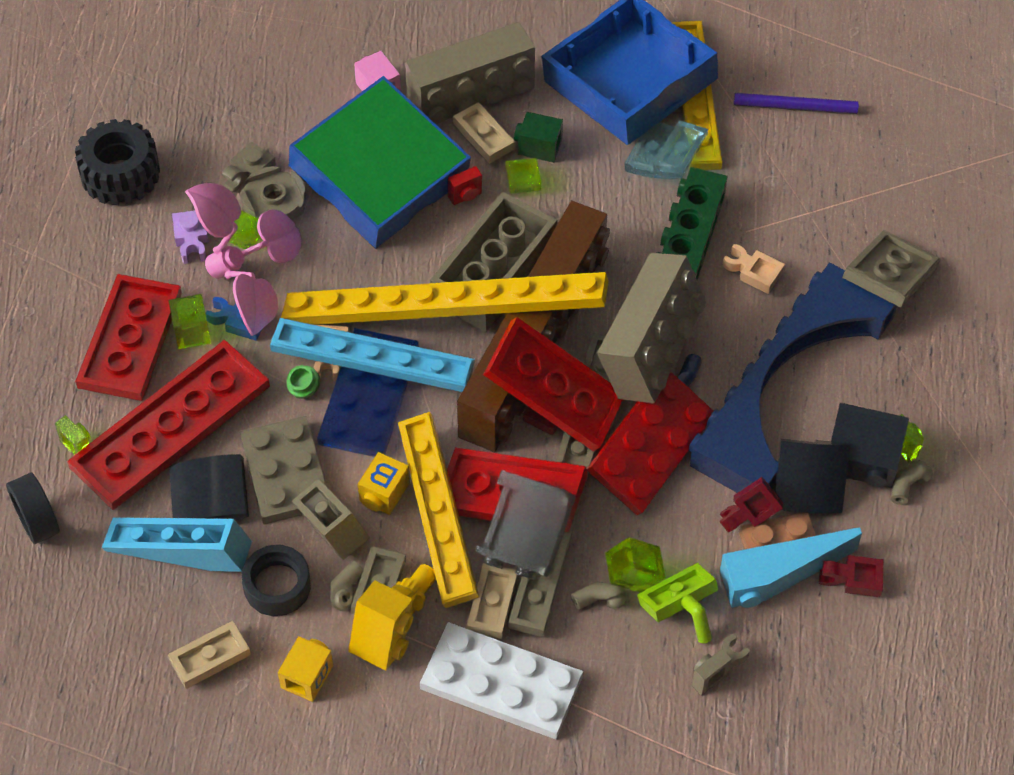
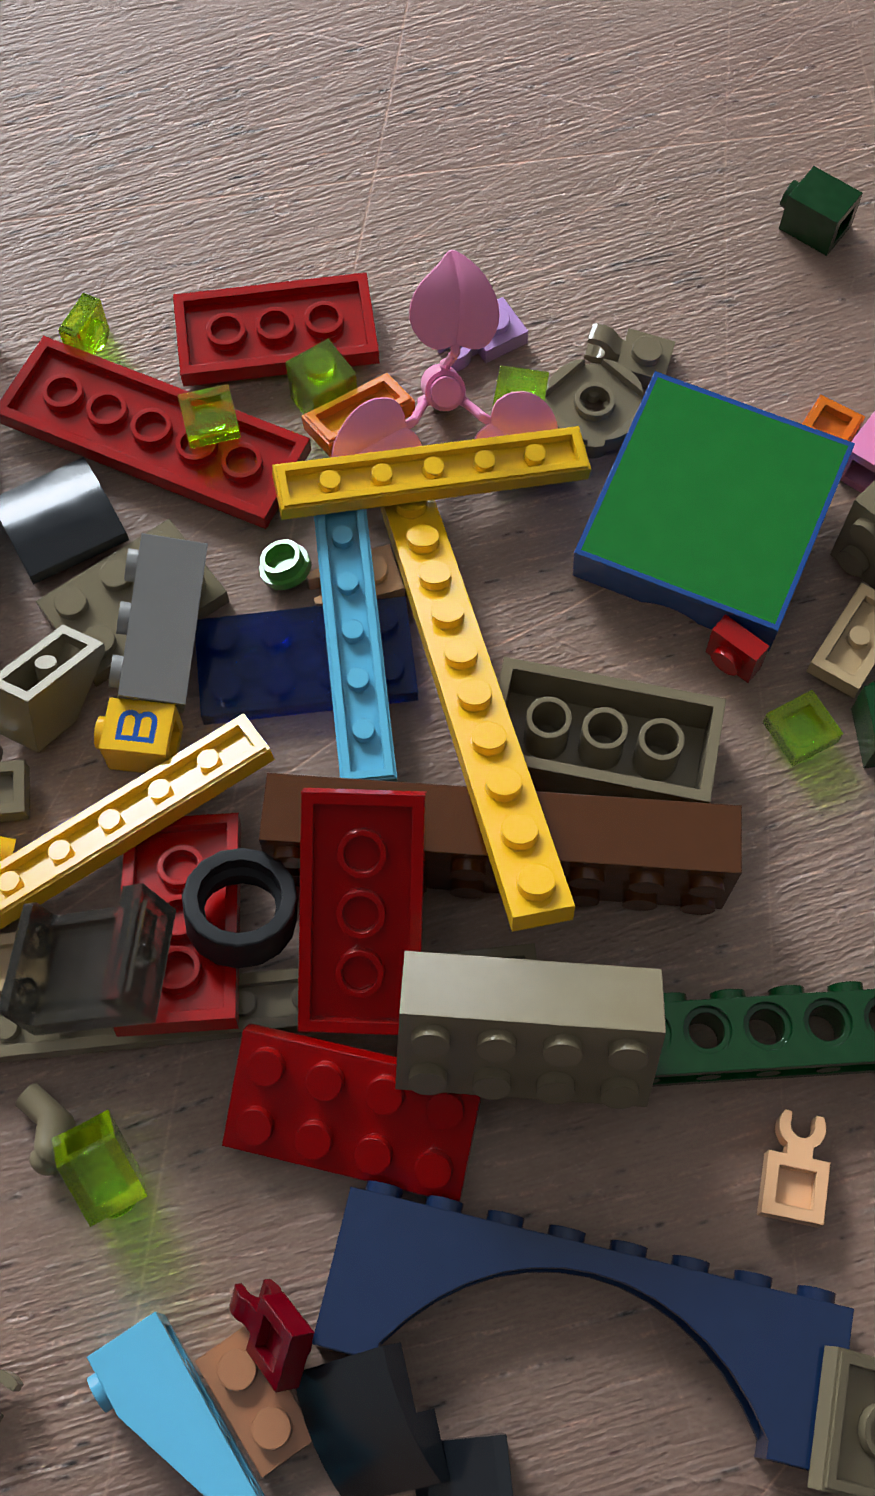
camera: 70 degrees right, 10 degrees up
(113, 143) = (551, 168): black tyre -> none
(187, 380) = (209, 416): none -> clear neon green plate
(200, 40) = (819, 210): none -> dark green brick
(221, 309) = (327, 419): none -> orange tile
(288, 282) = (430, 472): none -> yellow tile
(321, 443) = (159, 620): none -> light grey brick
(341, 92) = (834, 419): none -> orange tile
(522, 426) = (234, 868): none -> black tyre
(681, 593) = (74, 1261): lime plate -> none
(690, 369) = (520, 1127): dark blue arm -> none

